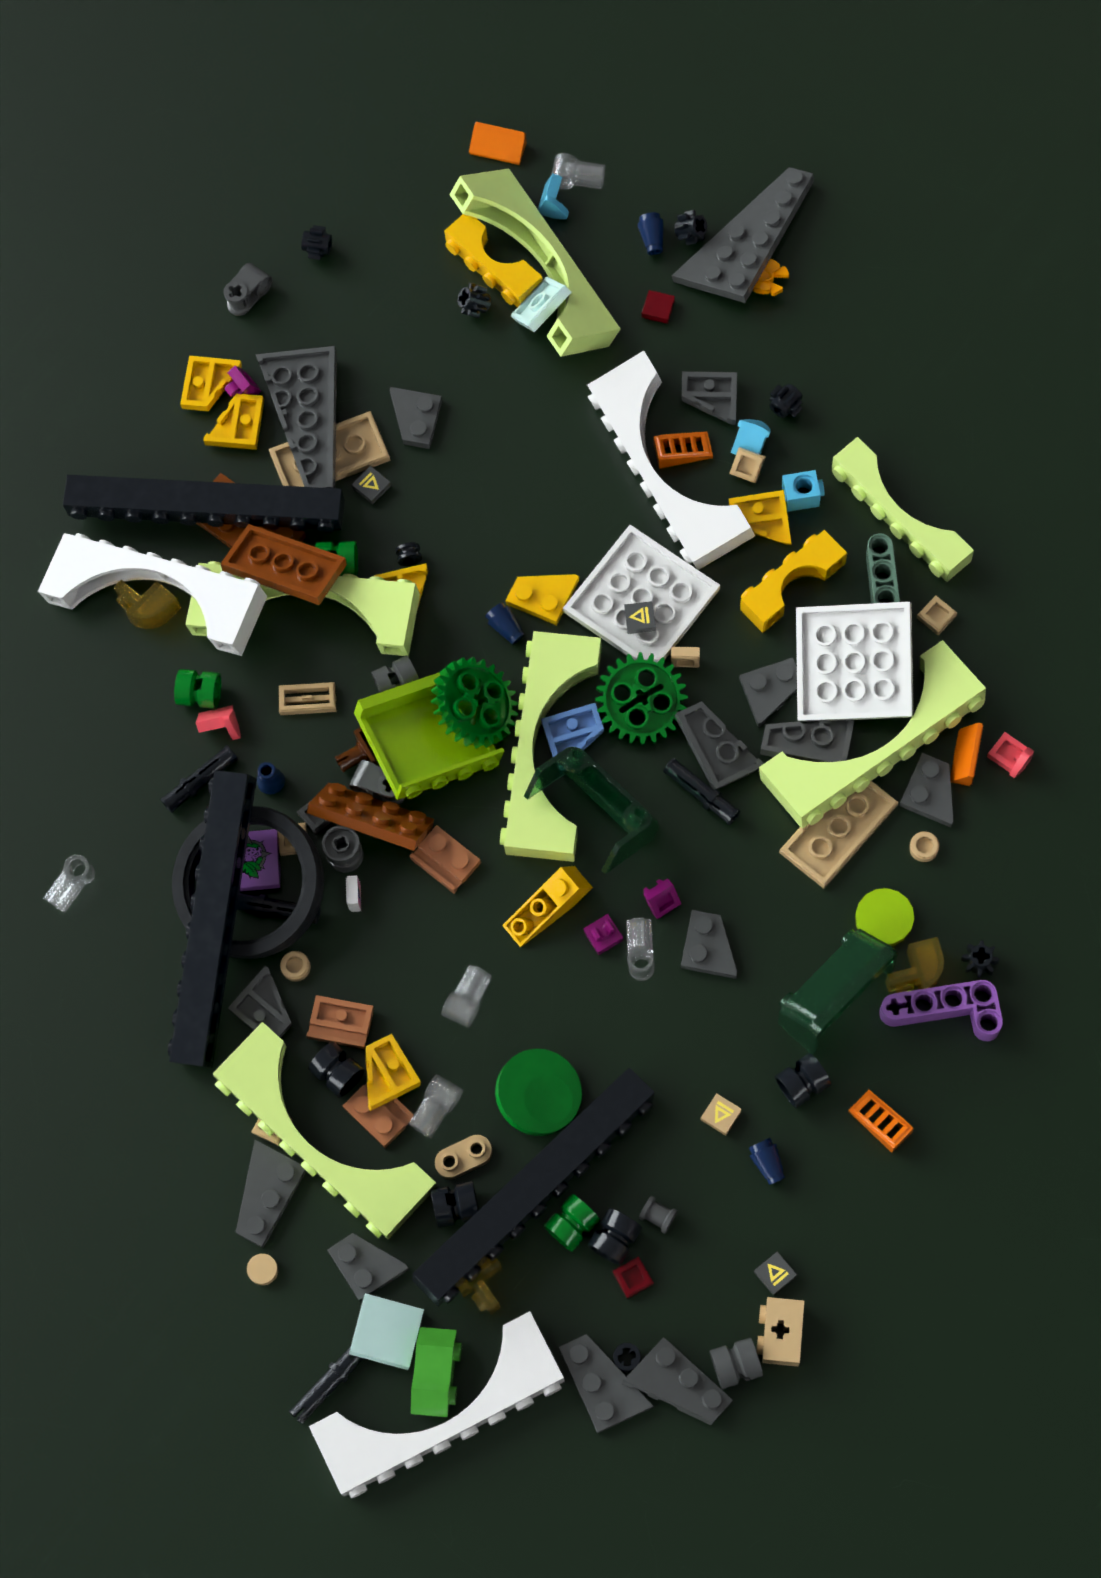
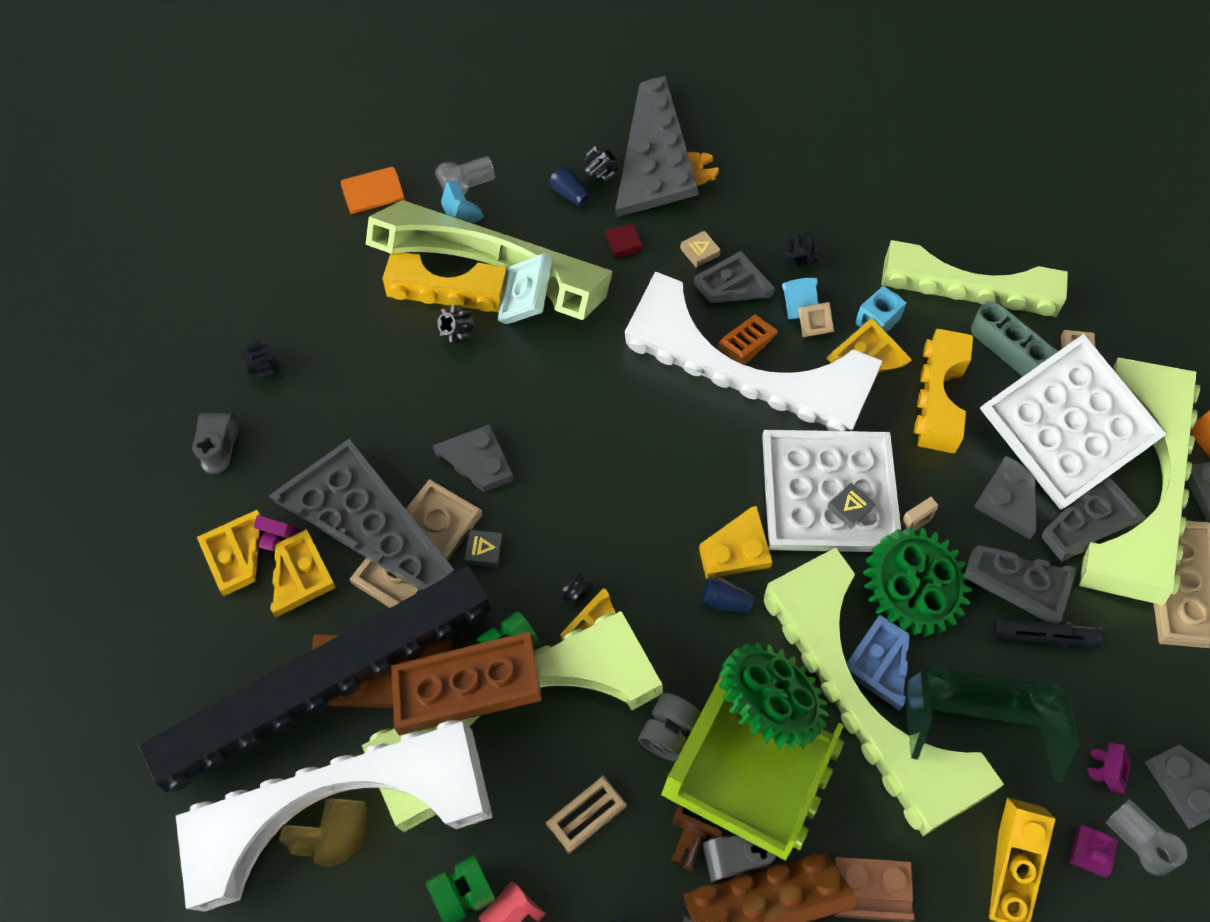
camera: 45 degrees left, 10 degrees down
(712, 350) = (700, 249): none -> tan tile

